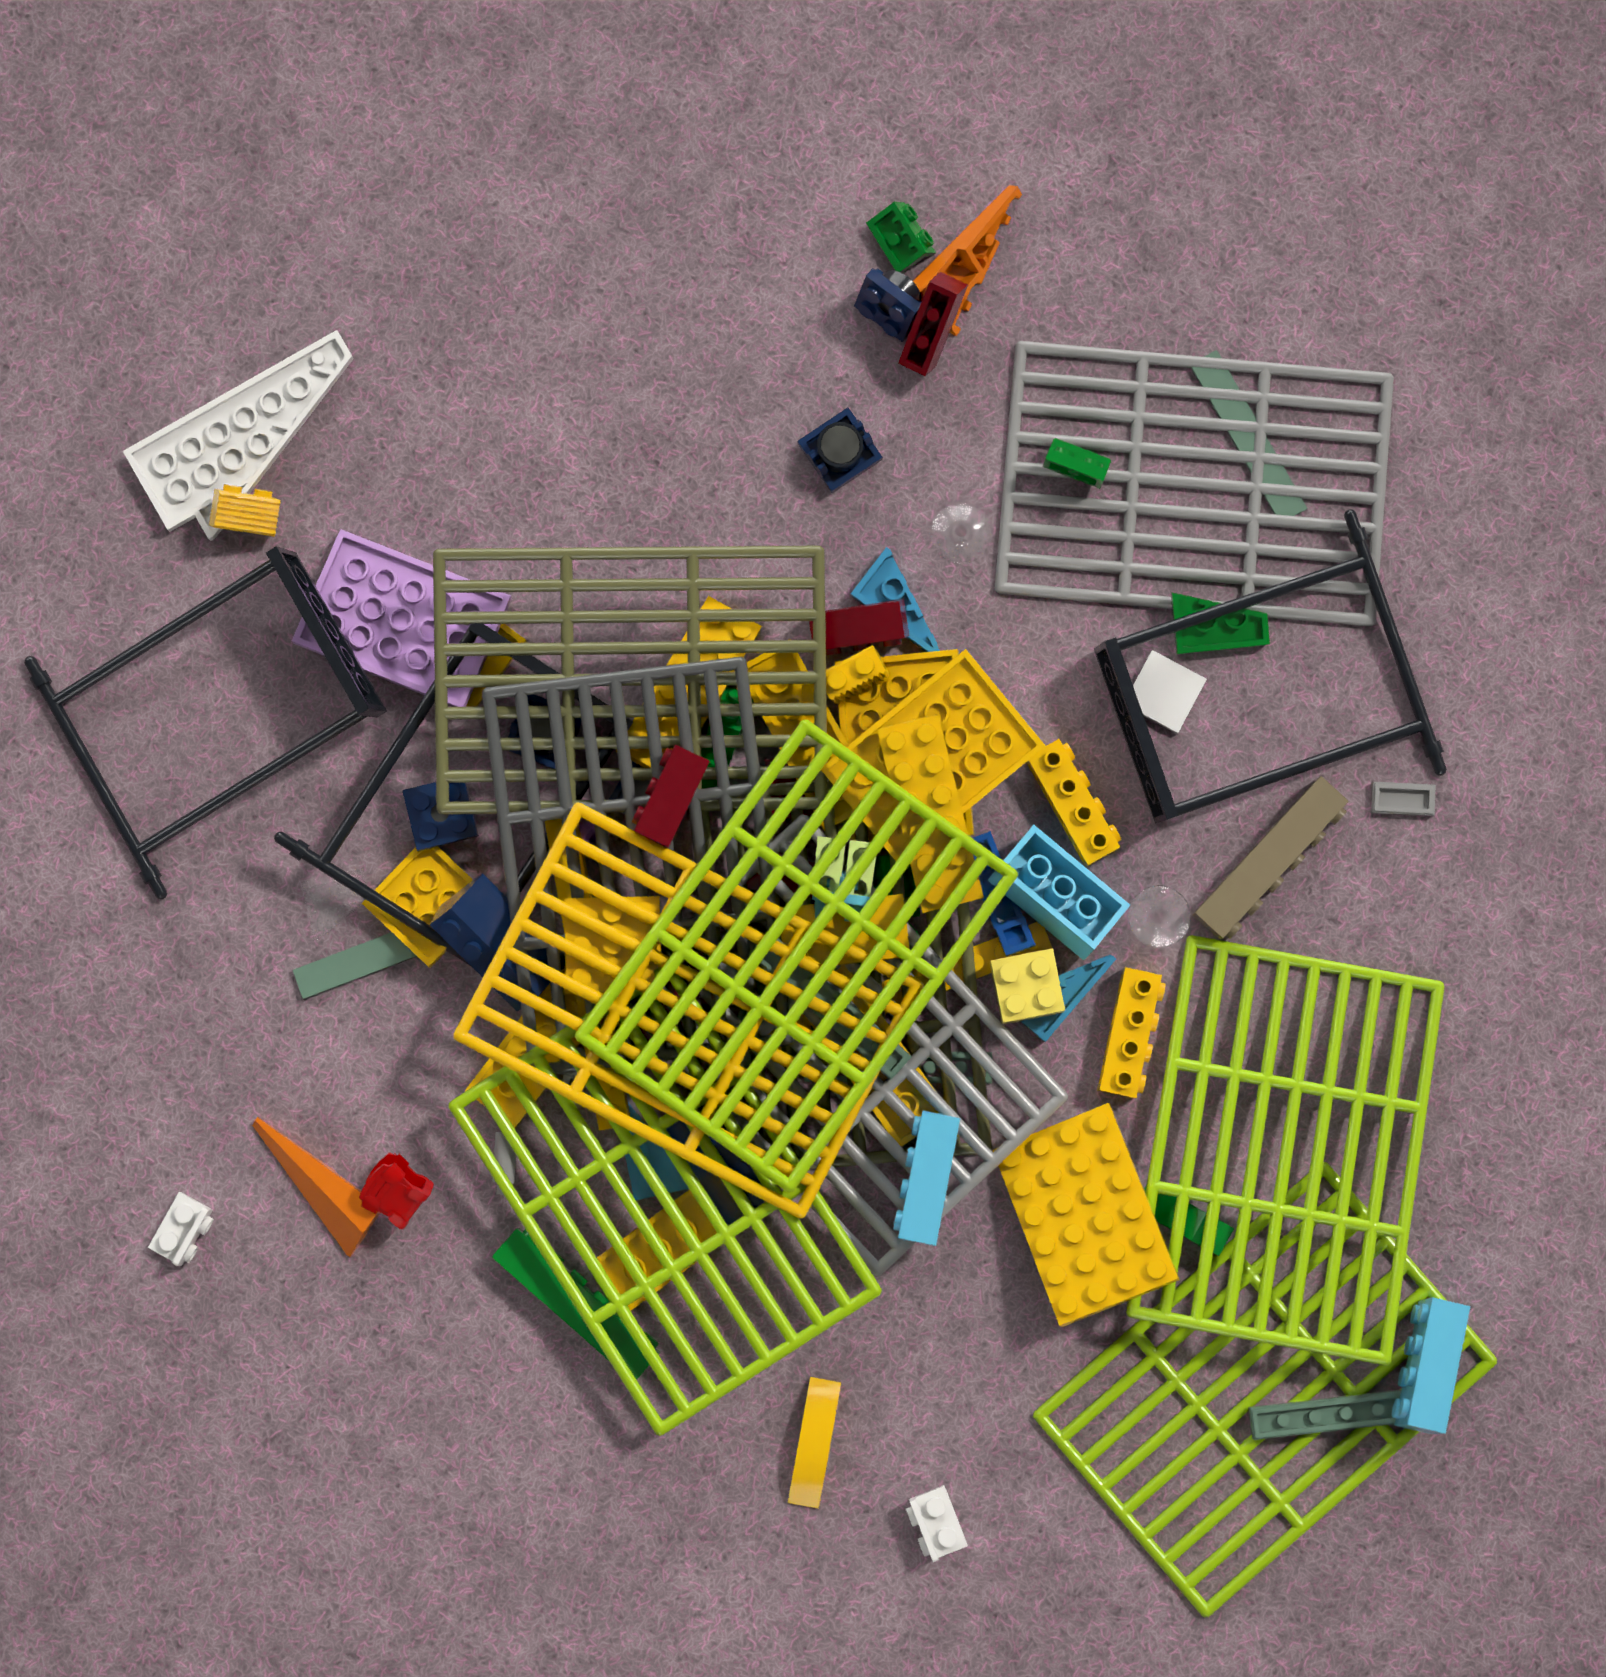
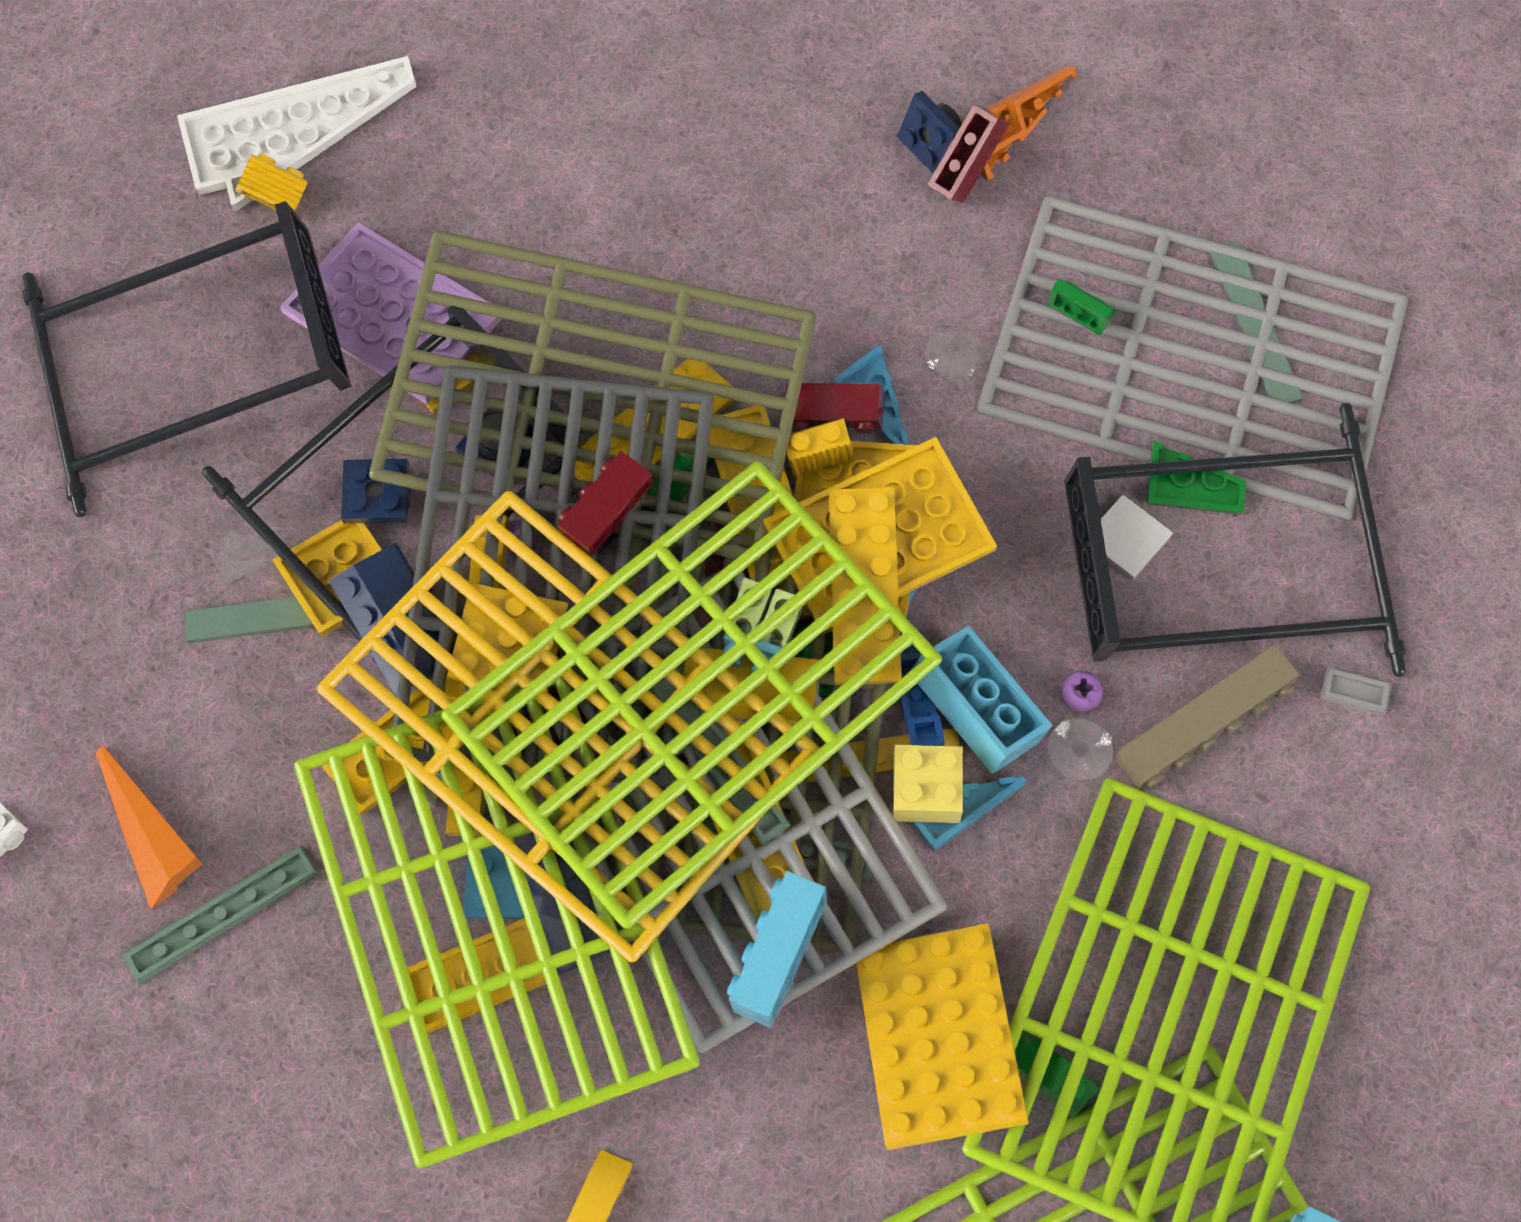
camera: 10 degrees right, 15 degrees down
(395, 1190) = (216, 845): red piece -> none
(413, 1247) = (219, 914): none -> sand green tile
(506, 1158) = (342, 843): light grey cylinder -> none
(528, 1266) = (331, 955): green brick -> none
(840, 450) = (854, 252): piece -> none
(901, 236) = (954, 83): green bracket -> none
(1073, 803) = (1013, 619): yellow brick -> none
(1129, 1033) = (1025, 860): yellow brick -> none
(1156, 848) = (1091, 685): none -> medium lavender piece

